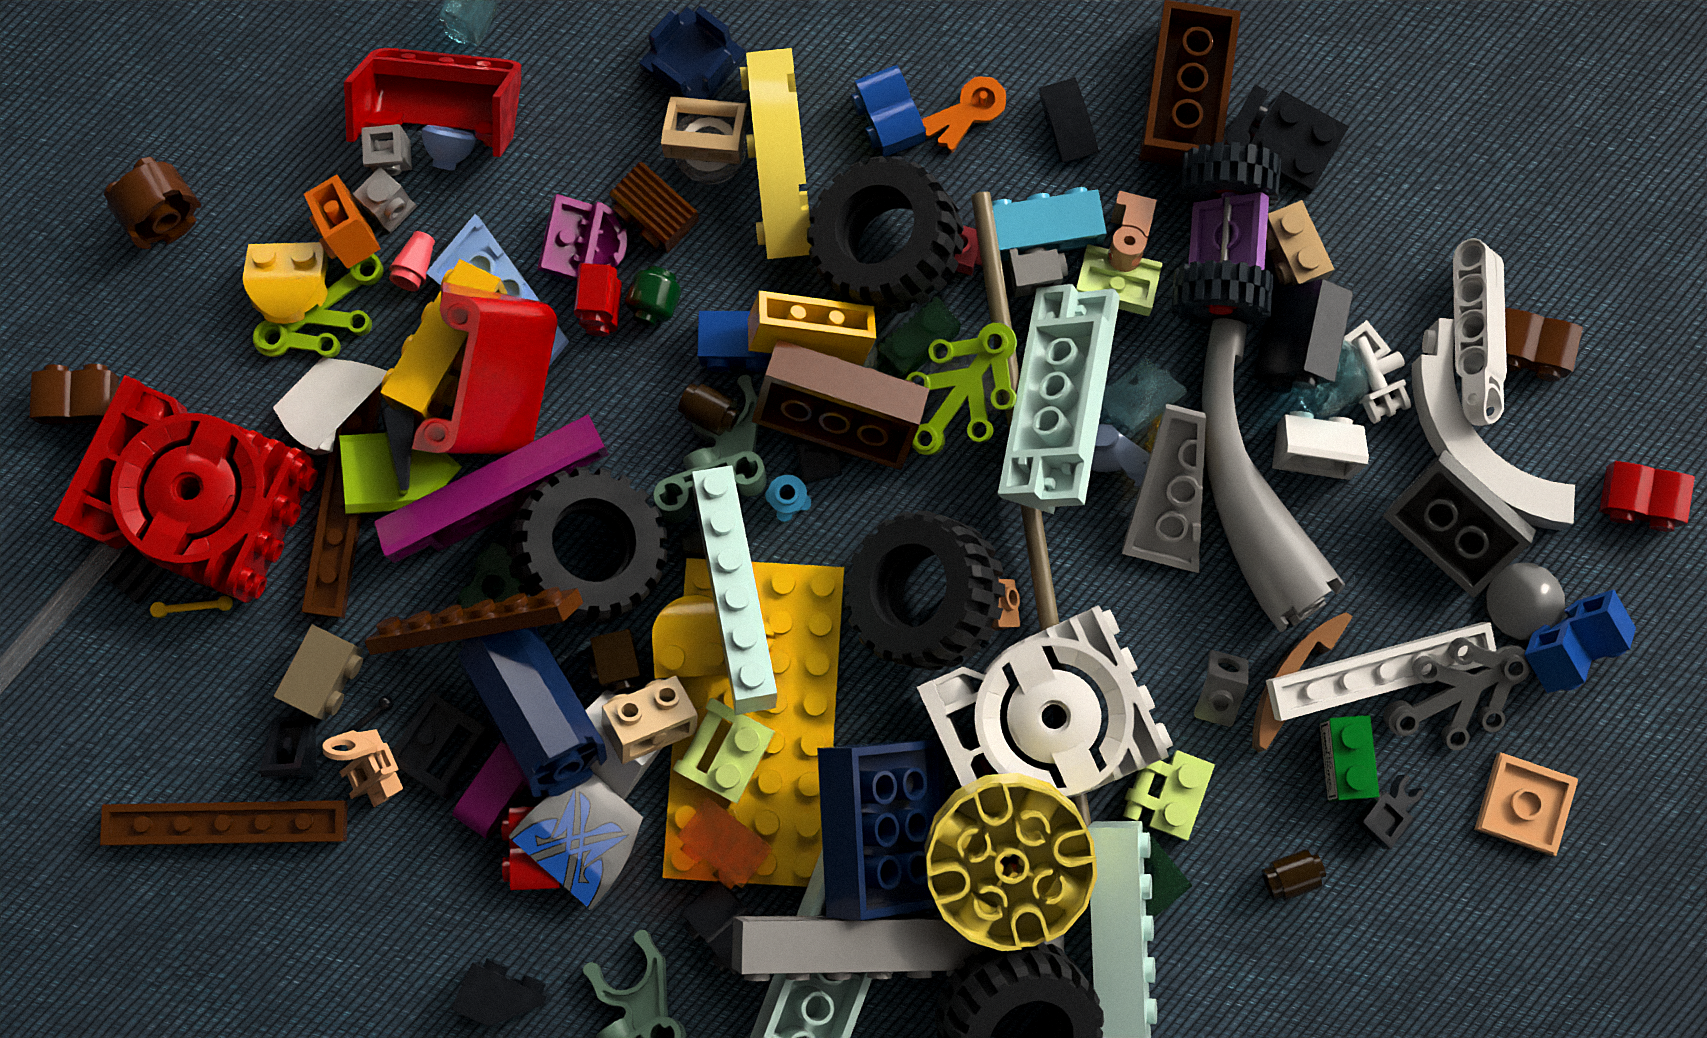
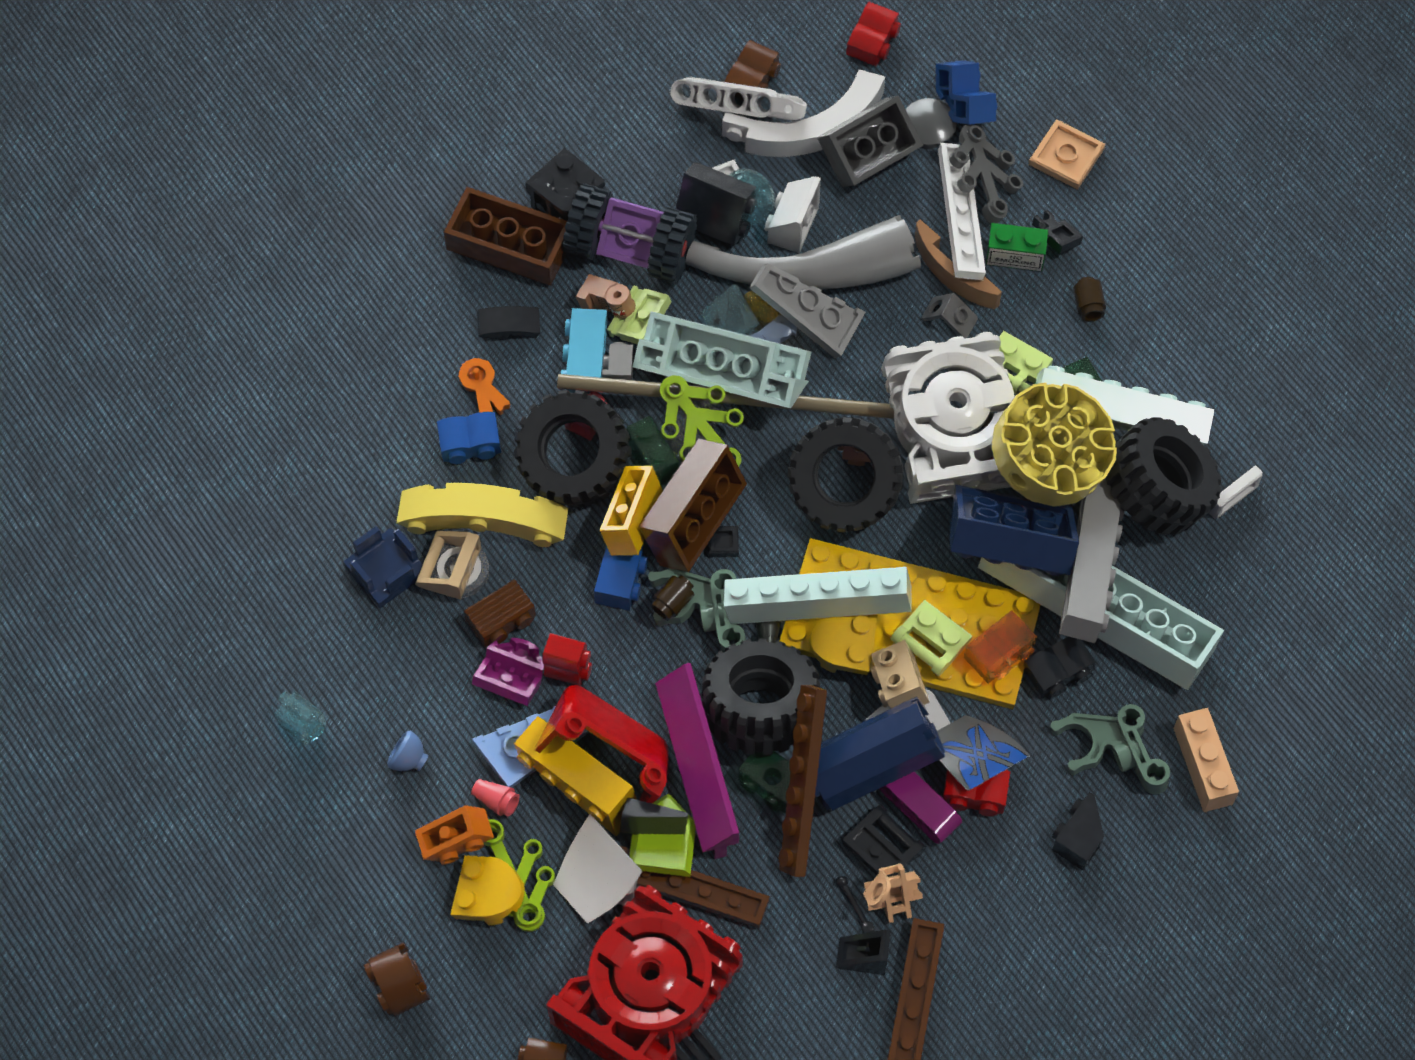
camera: 80 degrees left, 15 degrees down
(160, 609) = (730, 1041): yellow hinge -> none
(320, 673) = (811, 917): dark tan brick -> none
(384, 200) = (437, 802): light grey brick -> none
(390, 155) = (402, 794): light grey brick -> none
(434, 90) = (363, 744): red windscreen -> none
(615, 661) = (846, 705): dark brown brick -> none
(653, 295) = (571, 623): dark green head -> none
(787, 508) = (748, 570): dark azure brick -> none
(1296, 246) = (651, 192): tan brick -> none
(1378, 384) = (766, 165): white arm -> none

